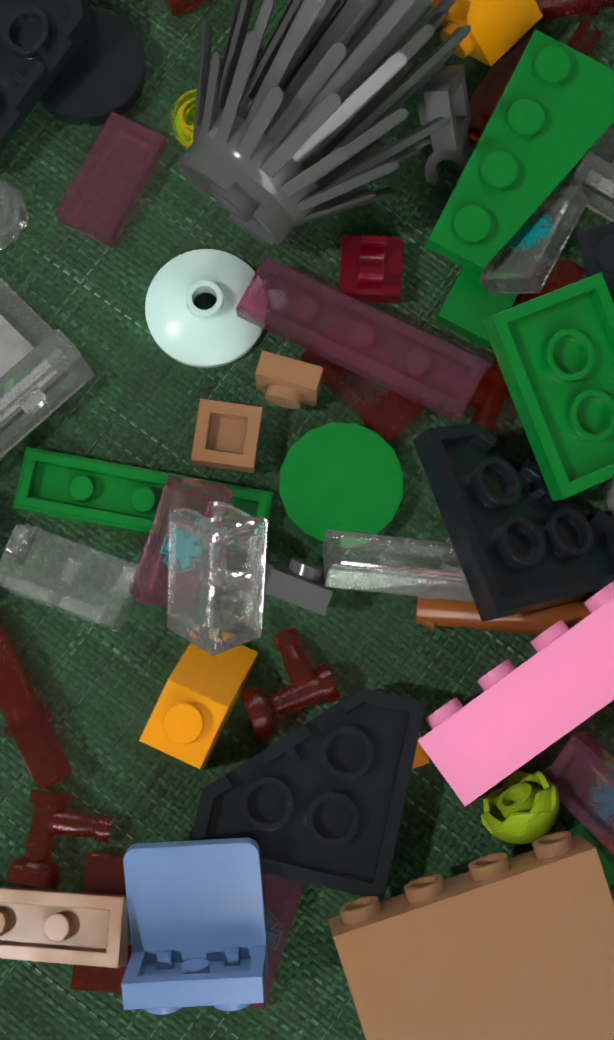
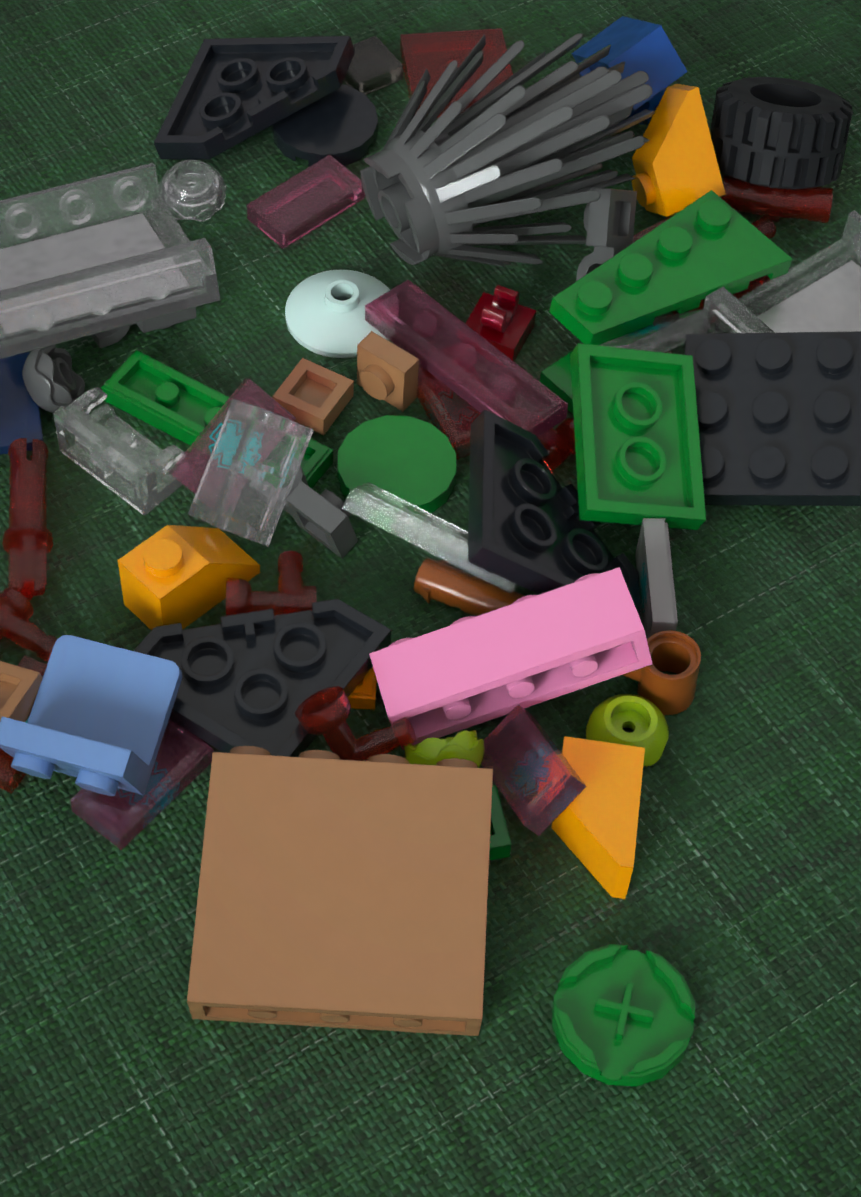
camera: 20 degrees right, 25 degrees down
(408, 829) = (327, 715): none -> clear red piece

